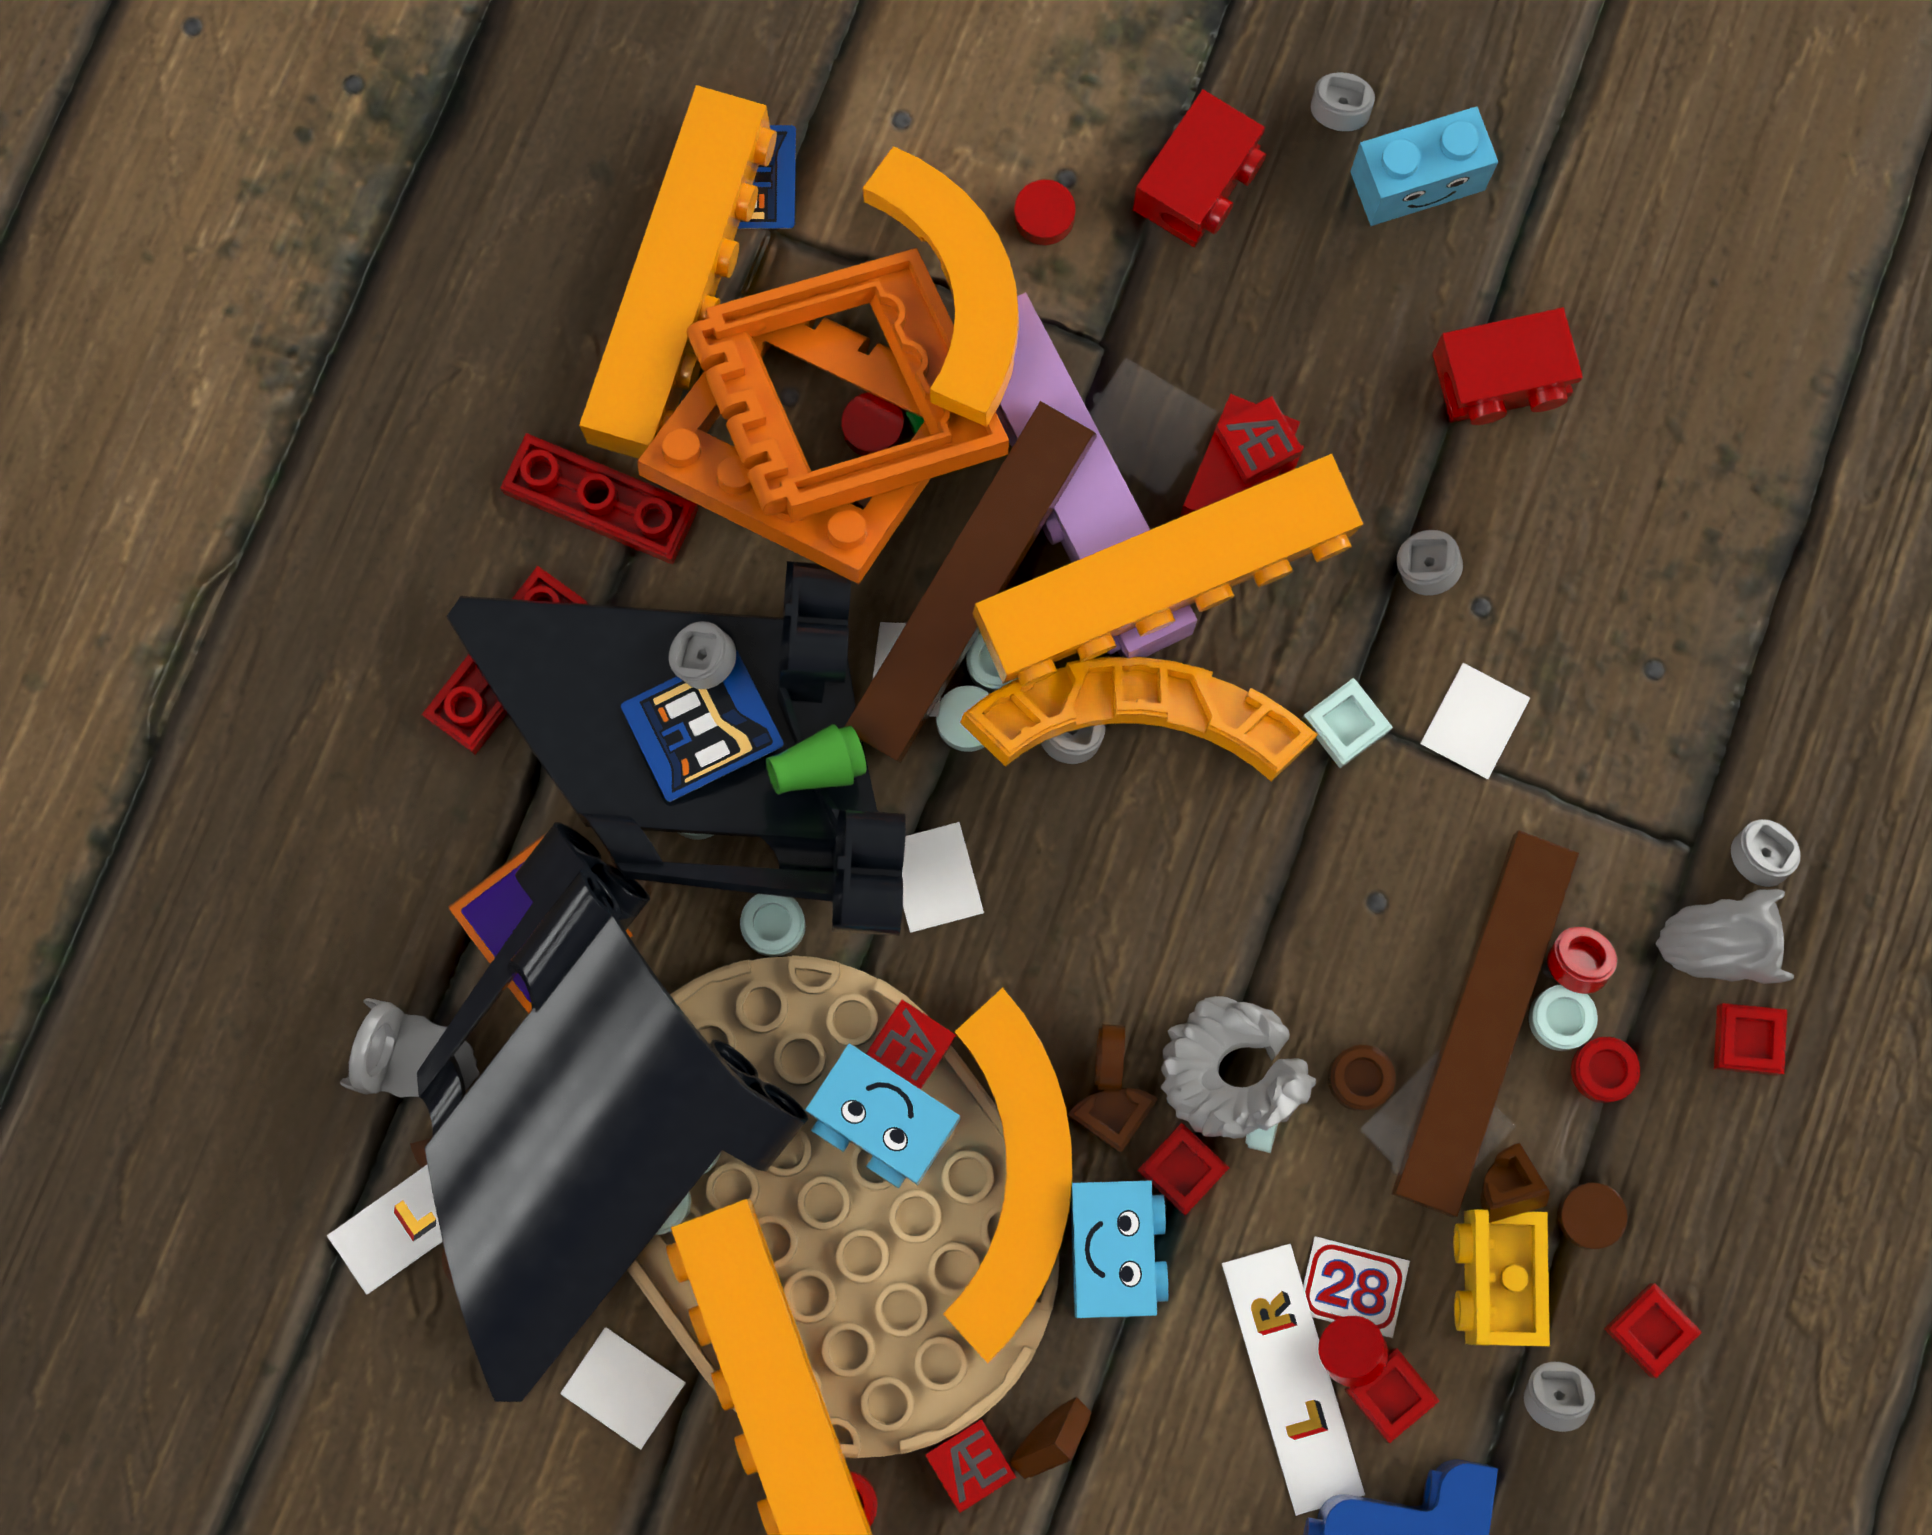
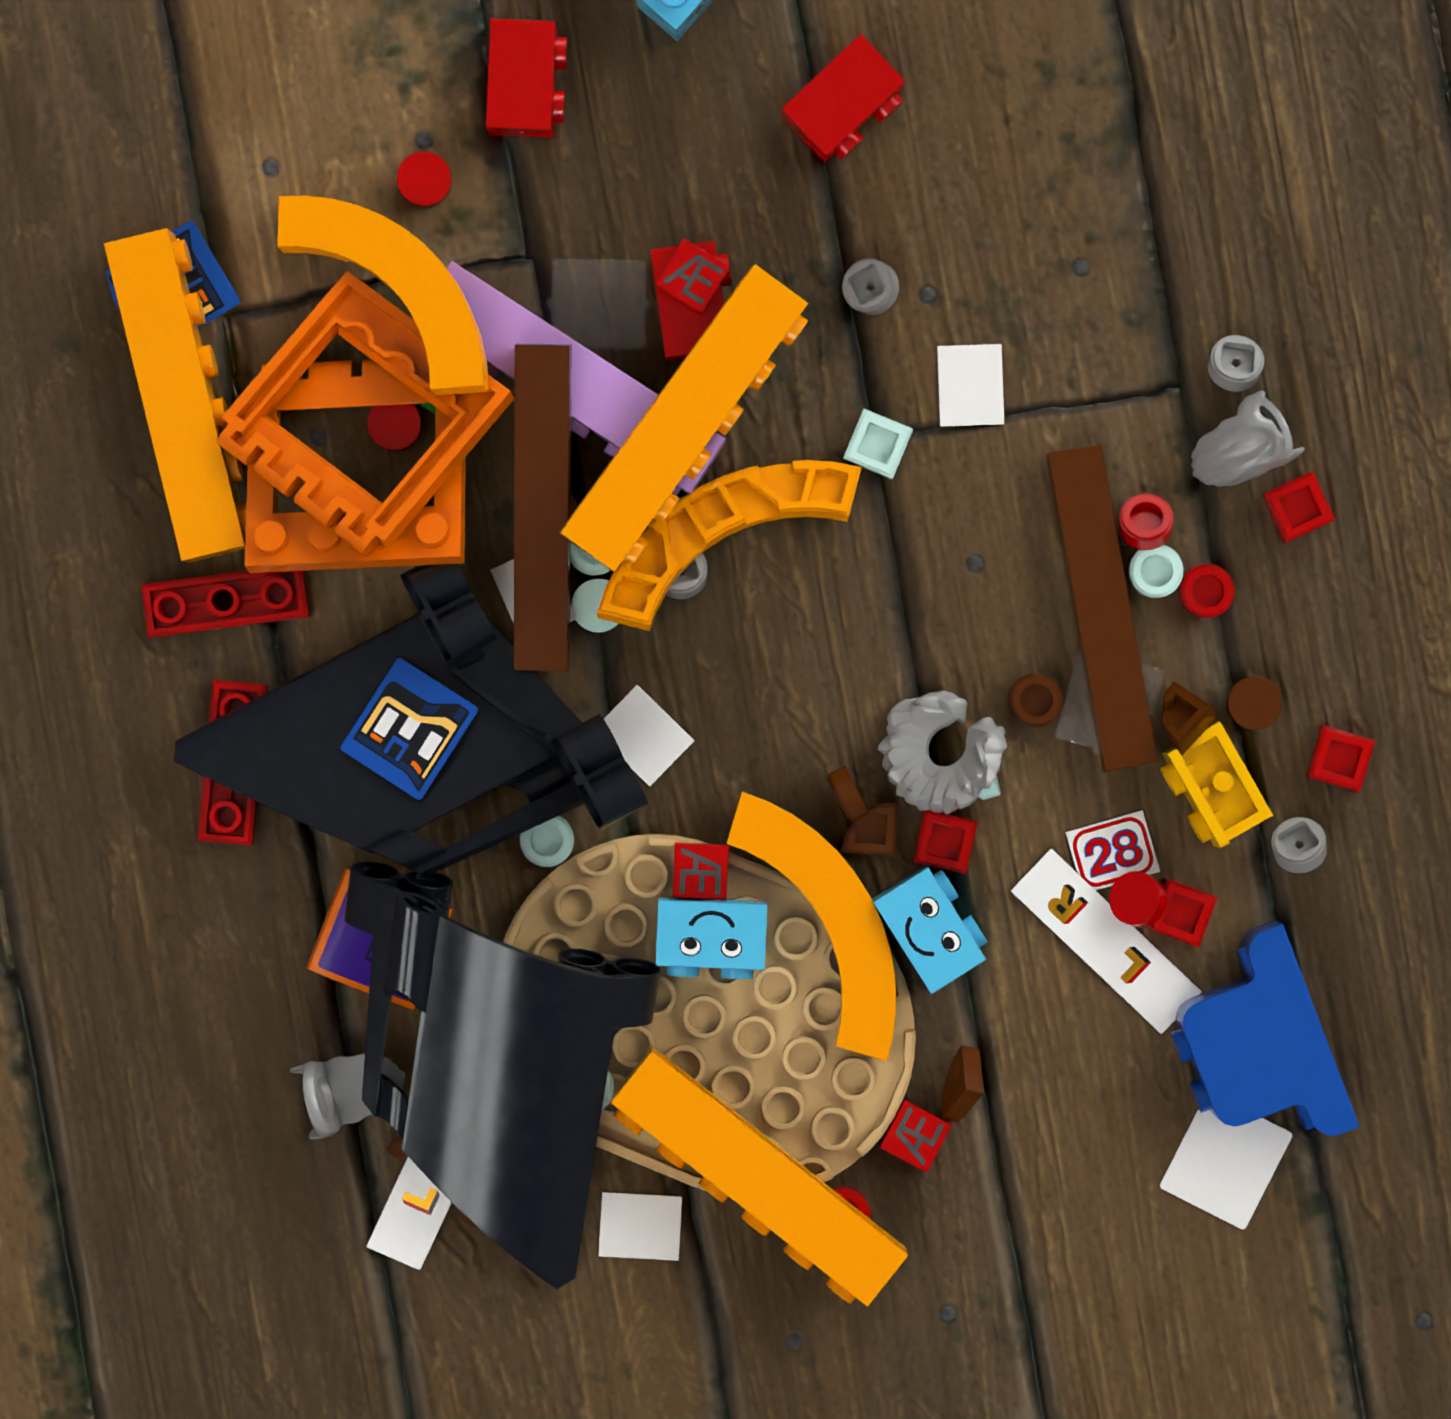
camera: 30 degrees left, 10 degrees up
(702, 655) = (379, 679): light grey tile -> none
(820, 761) = (513, 705): bright green cone -> none

